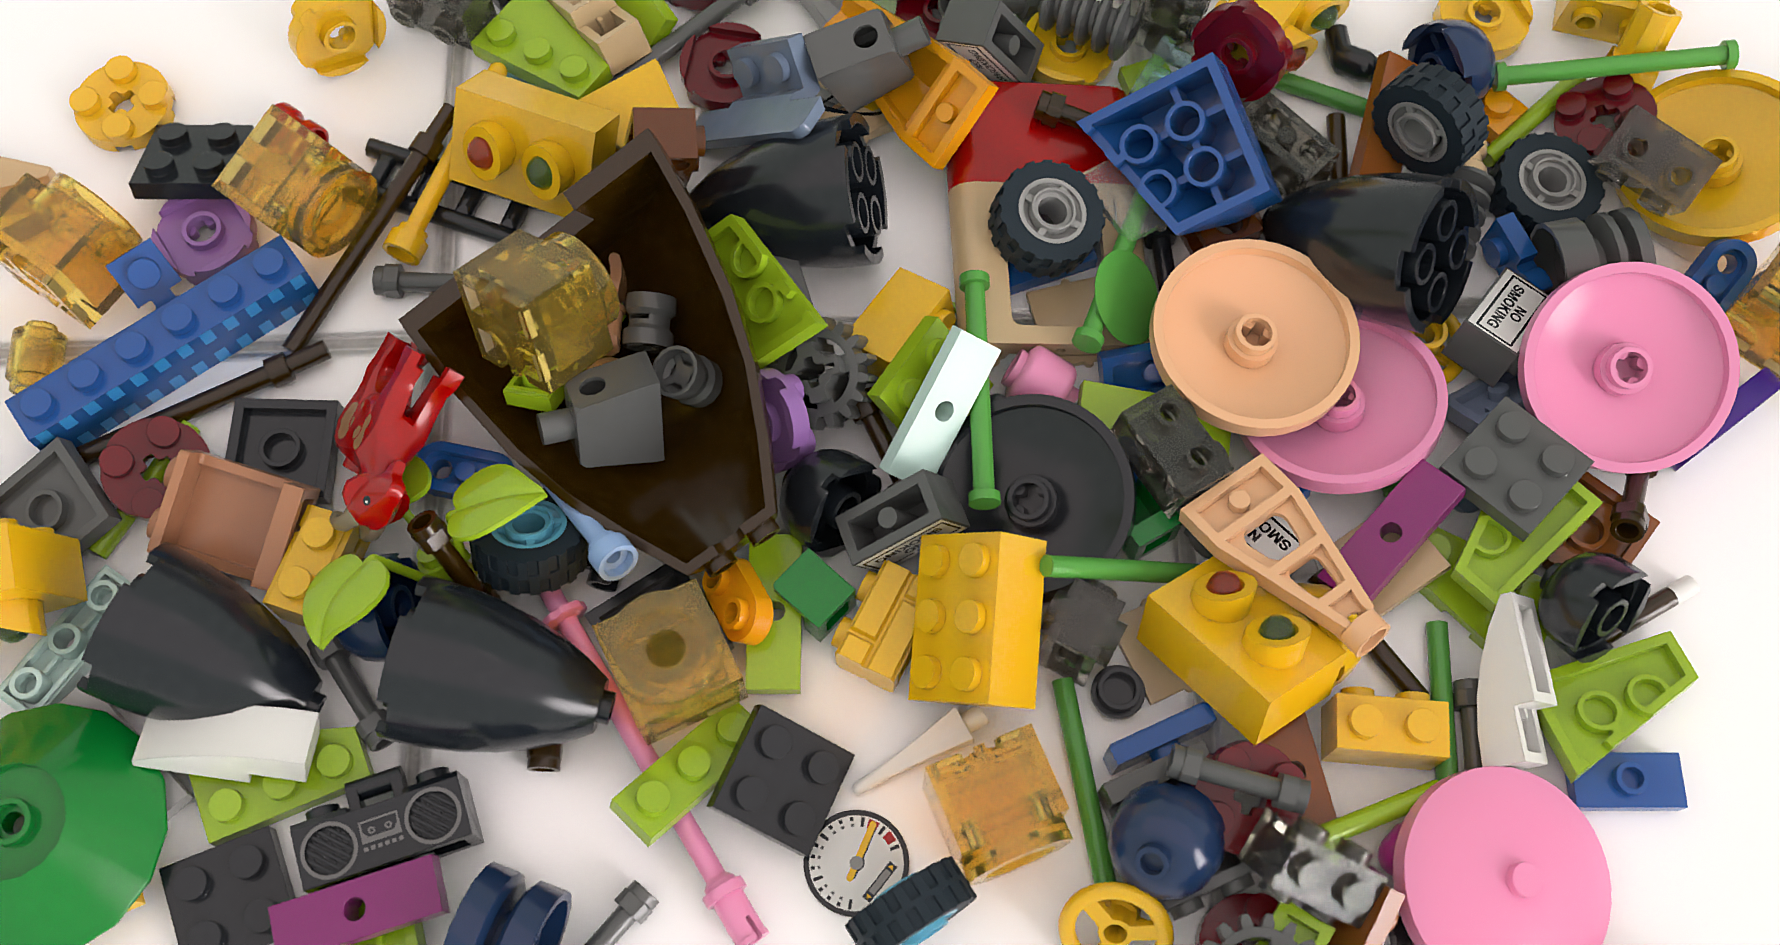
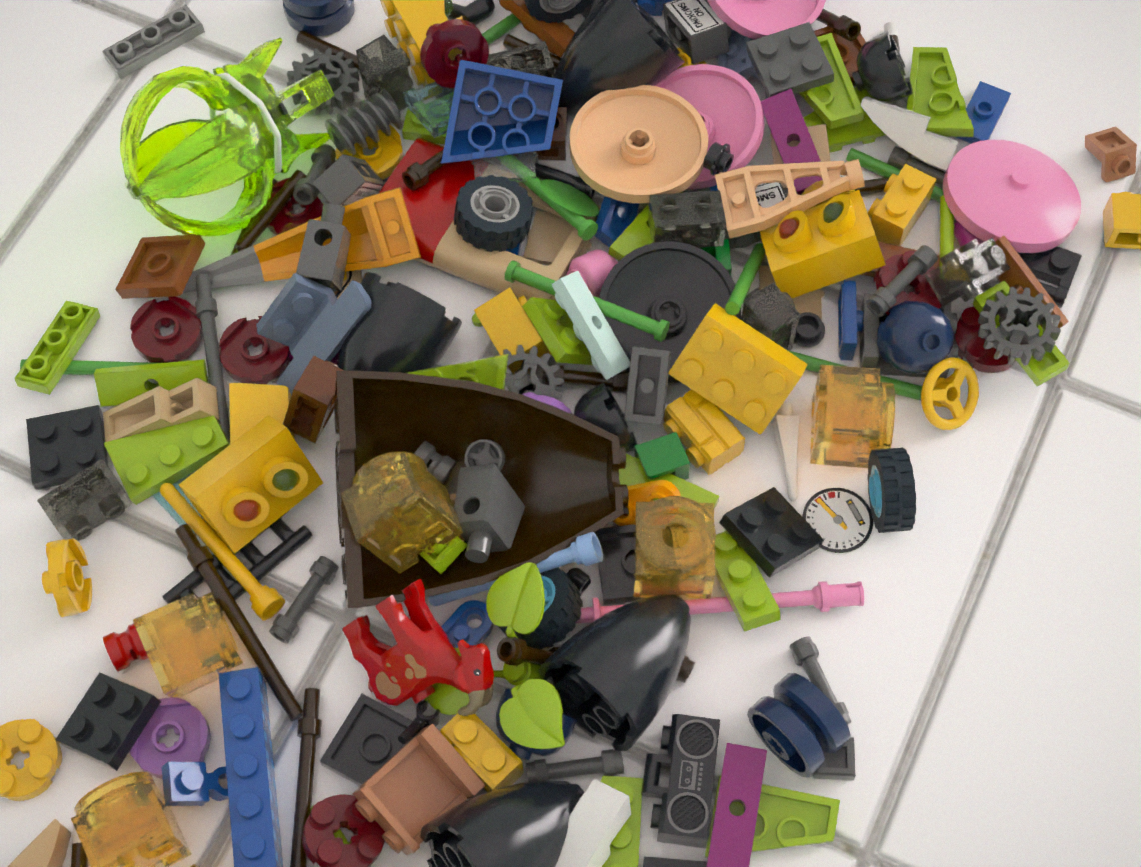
camera: 60 degrees left, 5 degrees down
(322, 479) = (419, 721): none -> black hand
(1292, 446) = (718, 158): none -> black plate

